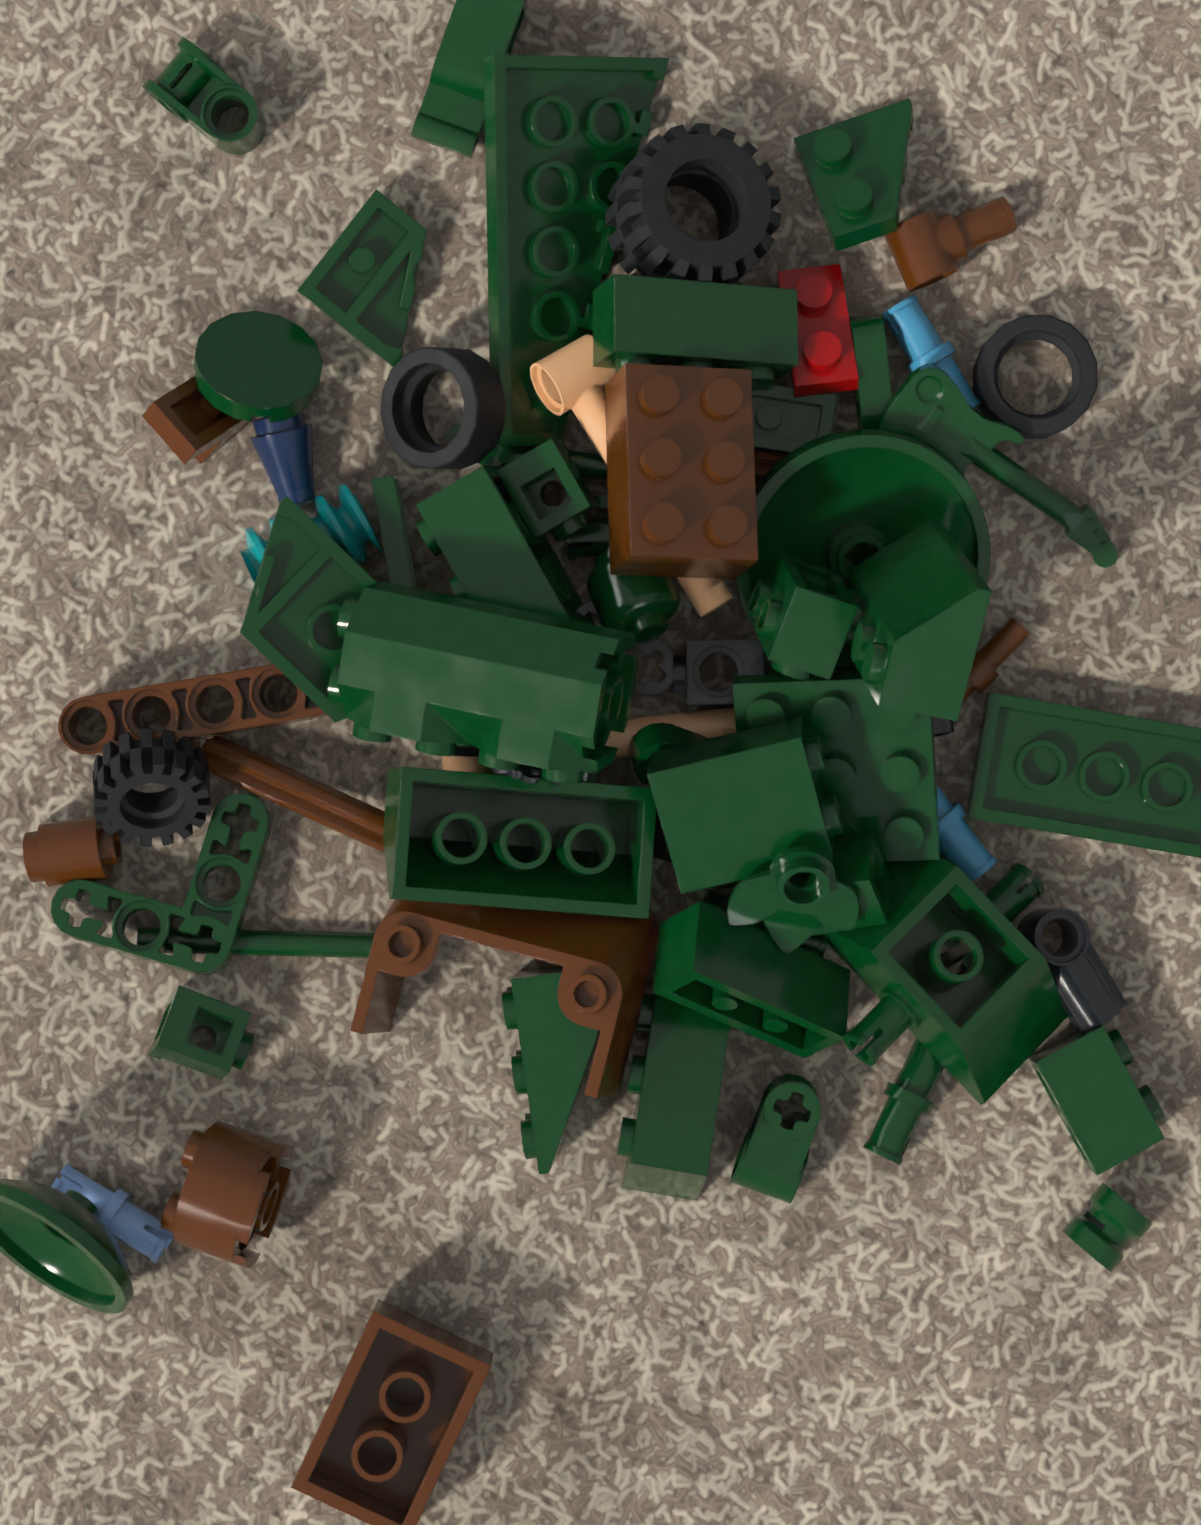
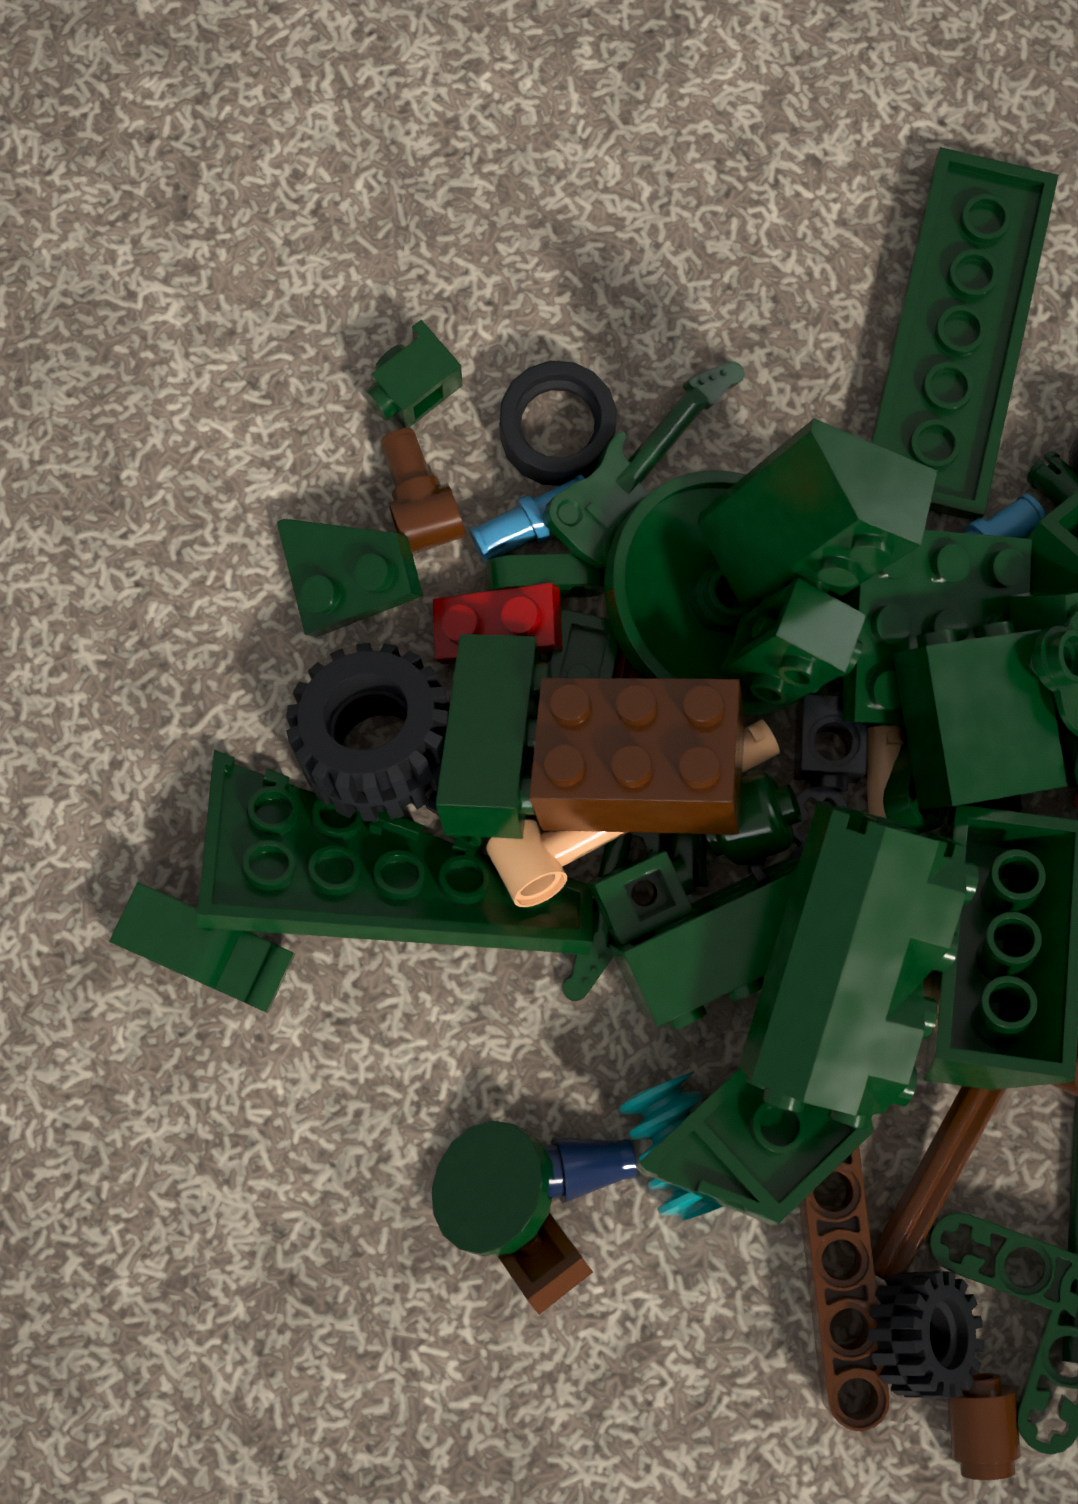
camera: 90 degrees left, 10 degrees down
(199, 94) = (201, 1230): dark green piece -> none
(370, 276) = (406, 1065): dark green wing -> none
(394, 531) = (678, 1058): dark green tile -> none
(404, 408) = (556, 1041): black tyre -> none
(1069, 223) = (414, 378): none -> dark green brick

